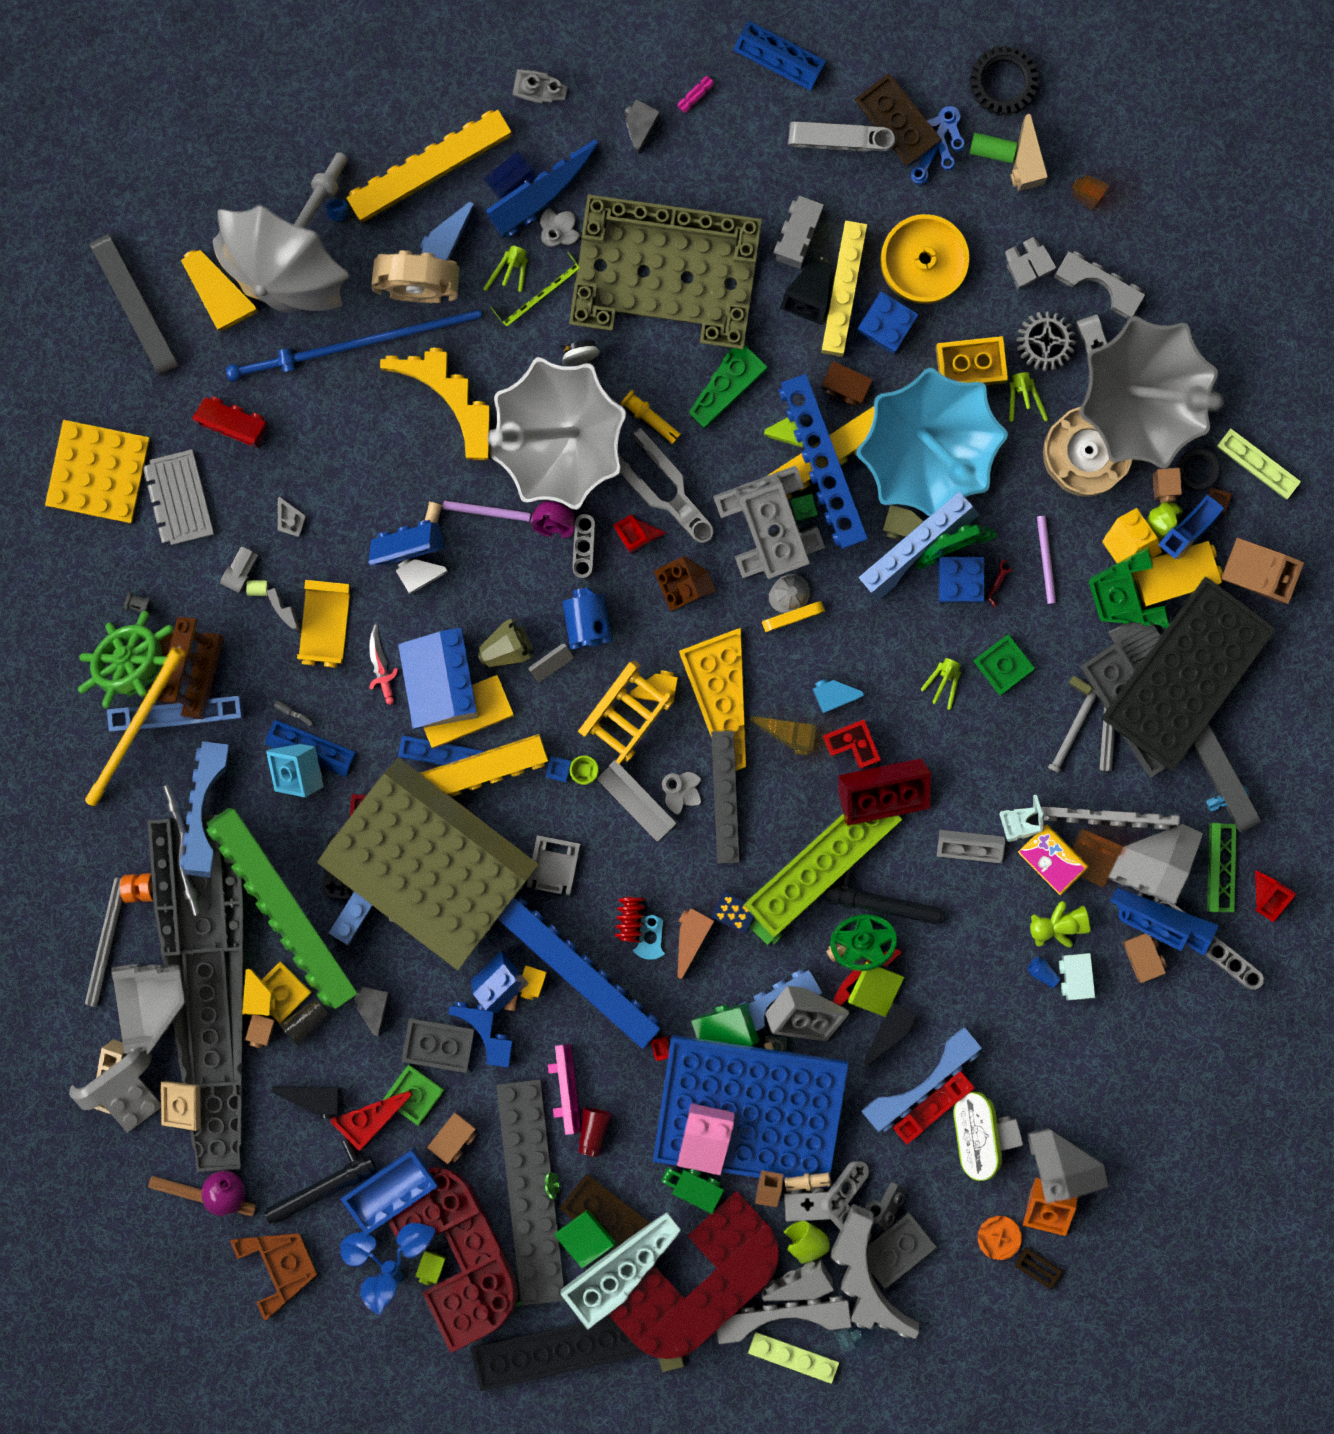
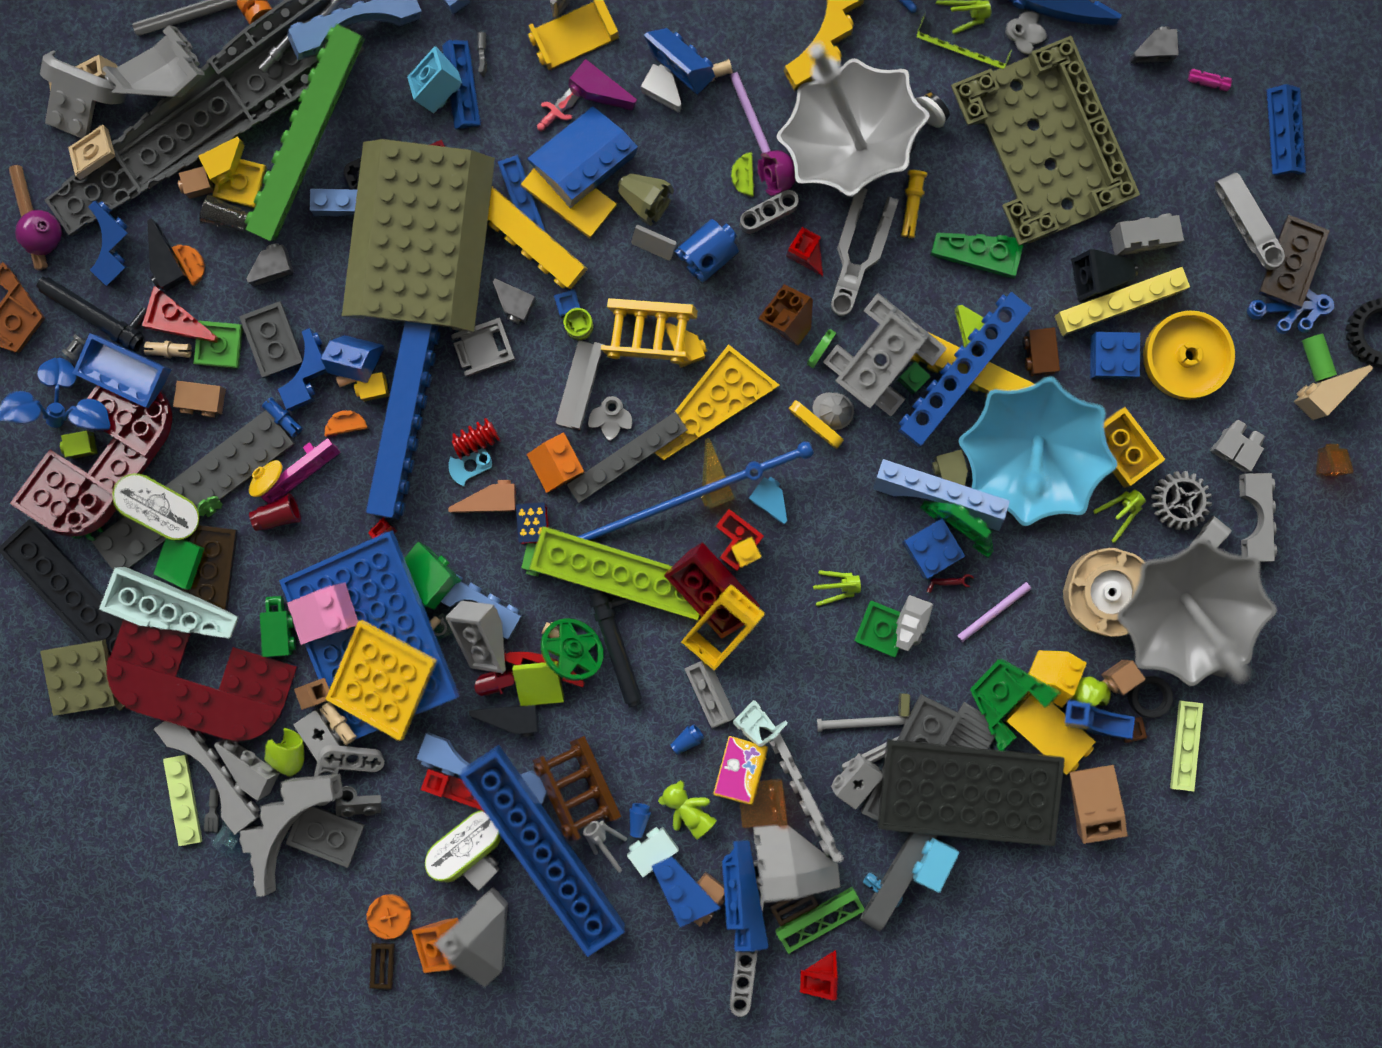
camera: 50 degrees right, 0 degrees up
(288, 1149) = (113, 231): none -> blue arch
(326, 1076) = (191, 262): none -> orange tile
(338, 1217) = (75, 348): none -> dark grey bush
(384, 631) = (598, 87): none -> magenta slope
(392, 1141) = (167, 349): none -> tan pin
(511, 1076) = (282, 417): none -> blue pin
(528, 1228) = (155, 506): none -> white tile
(531, 814) = (514, 301): none -> flat silver slope
(536, 549) = (743, 174): none -> lime tile
(547, 1024) = (345, 422): none -> orange tile
(558, 1121) = (265, 478): none -> yellow dish
(634, 1384) = (78, 677): none -> olive plate
(692, 862) = (555, 462): none -> orange slope
(729, 571) = (820, 349): none -> bright green tile
(793, 1120) = (381, 680): none -> yellow plate
(812, 641) = (804, 451): none -> blue bar
(824, 1341) = (211, 820): none -> dark grey piece
(852, 1026) = (493, 682): none -> dark red arm
(870, 743) = (745, 552): none -> yellow brick
(914, 776) = (741, 608): none -> yellow window
(985, 989) = (597, 788): none -> reddish brown fence
(999, 889) = (687, 739): none -> blue cone
(1014, 636) = (912, 622): none -> light grey connector
(1021, 1068) = (542, 850): none -> blue brick
(1033, 1015) = (596, 833): none -> light grey plant
(1121, 765) = (856, 781): none -> light grey brick
(1127, 970) = (682, 892): none -> blue wing
(1205, 864) = (795, 915): none -> dark brown tile
(1230, 740) = (935, 864): none -> medium azure slope

